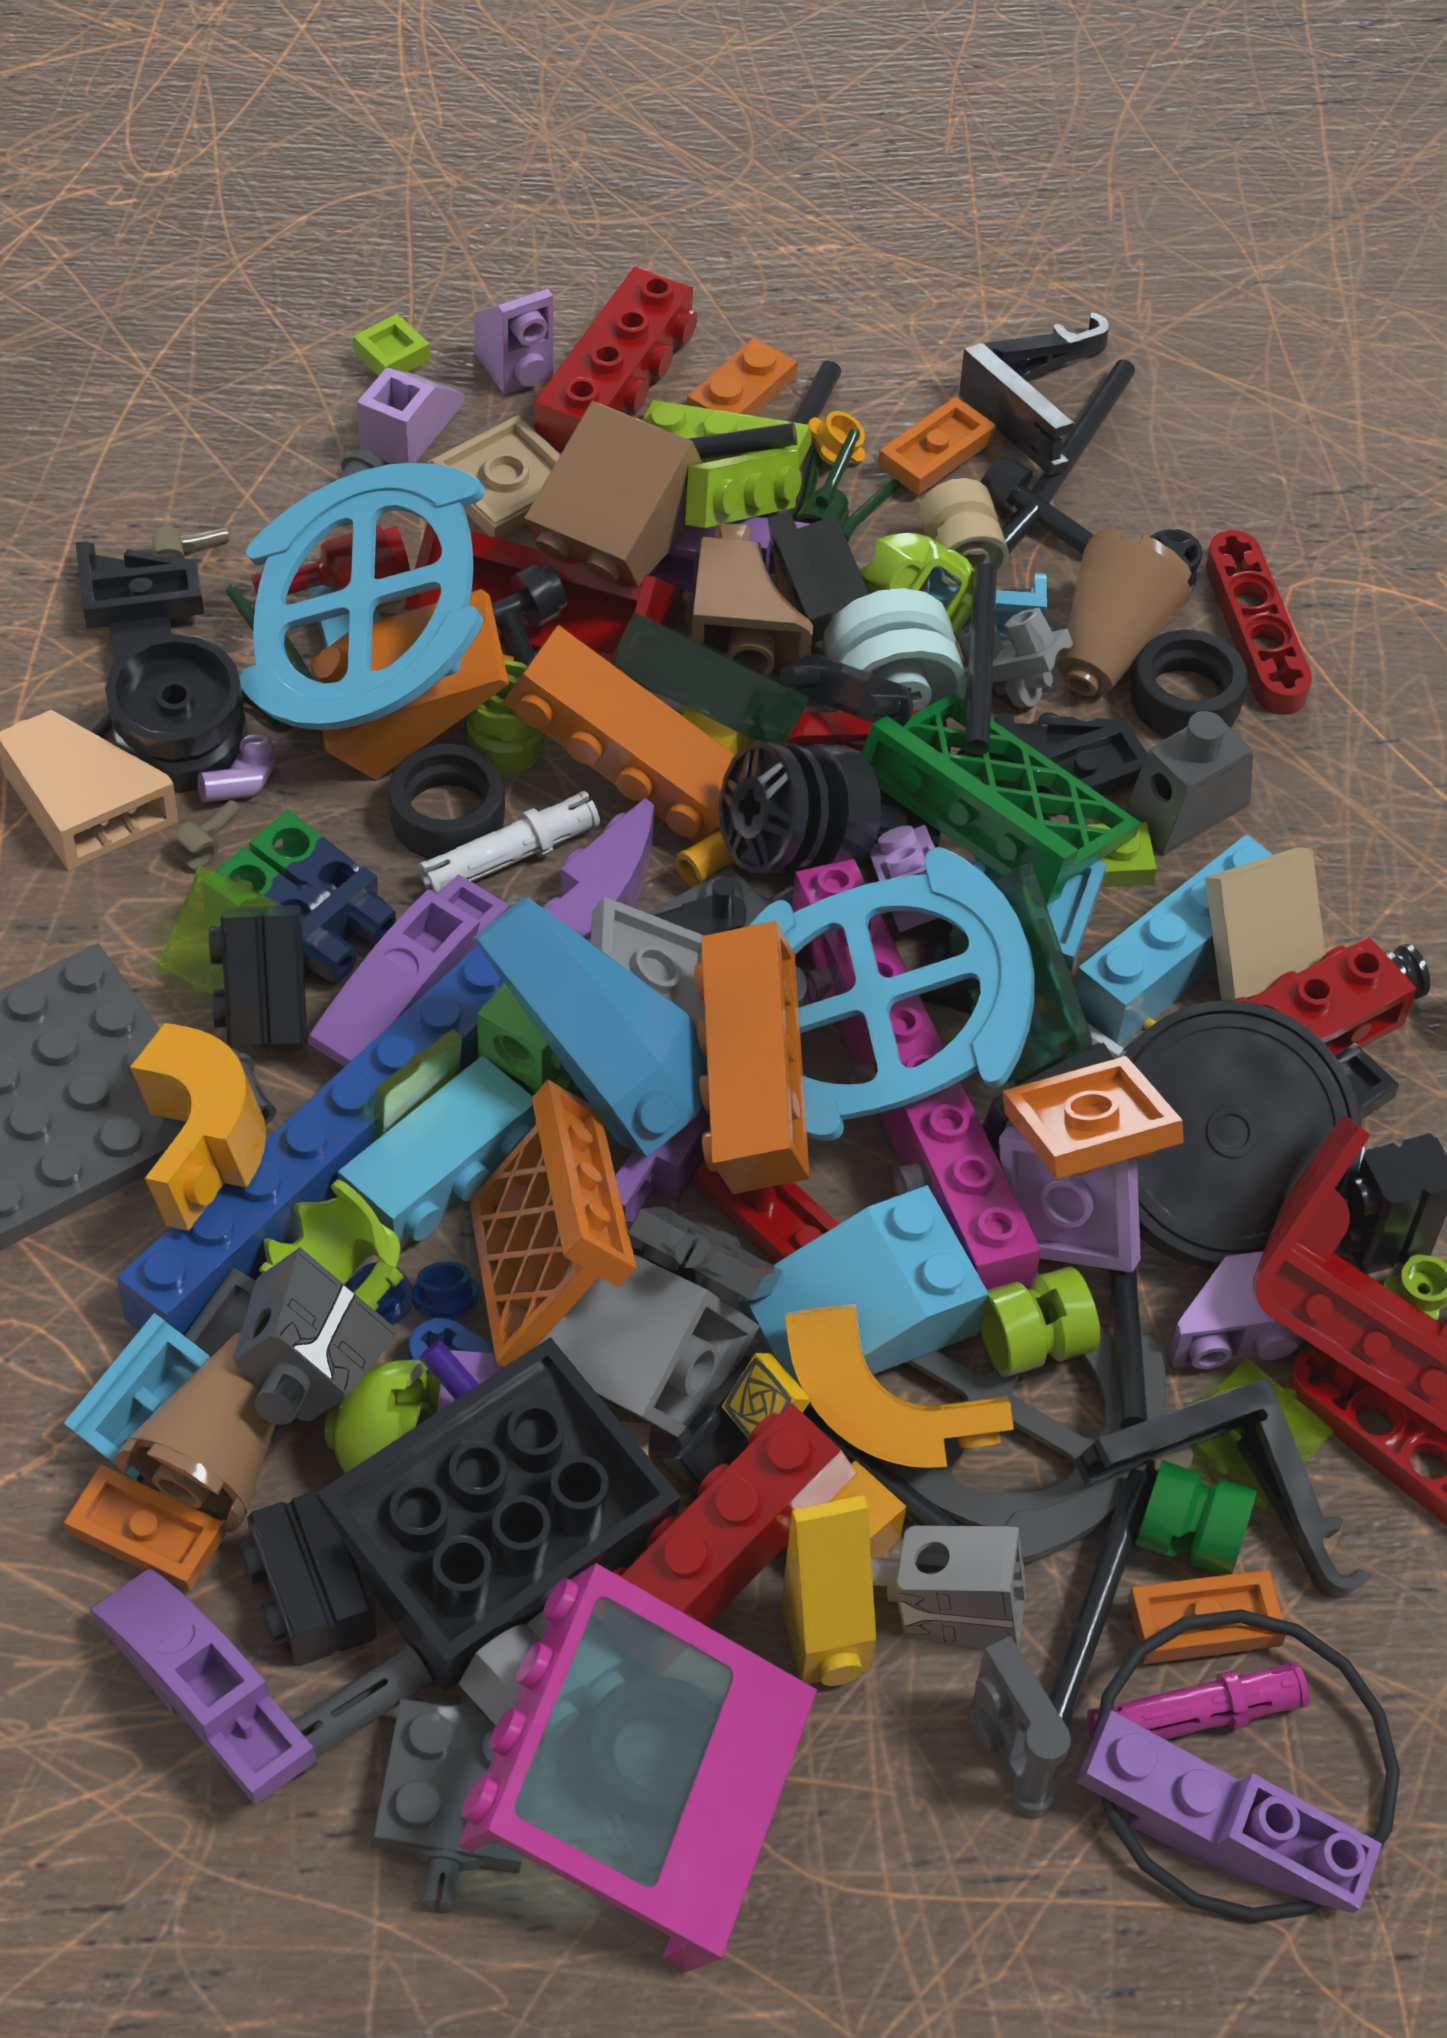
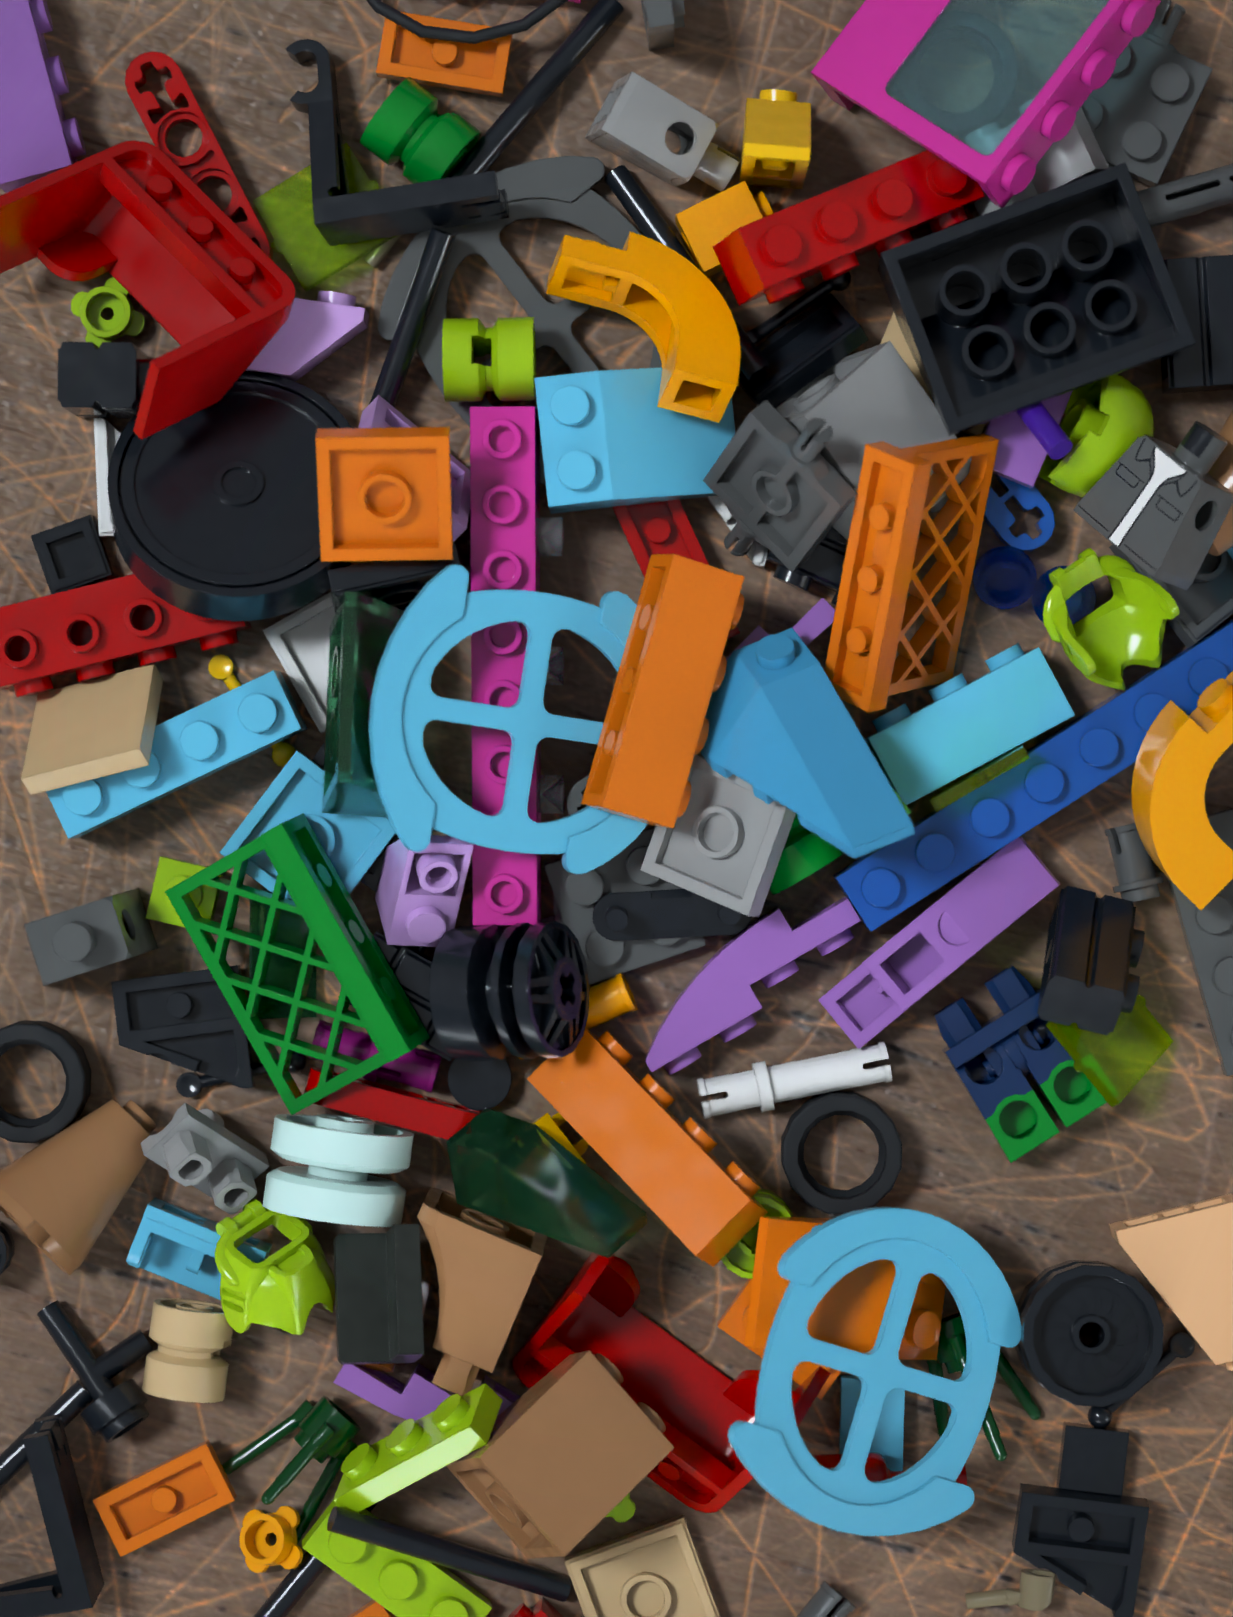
camera: 165 degrees left, 35 degrees up
(197, 841) = (1103, 1179): dark tan hand -> none
(245, 775) = (1033, 1250): lavender arm -> none
(538, 598) = (676, 1382): black piece -> none
(763, 1390) = (768, 337): yellow tile -> none
(849, 689) = (416, 1140): black piece -> none
(981, 660) = (253, 1131): black bar -> none

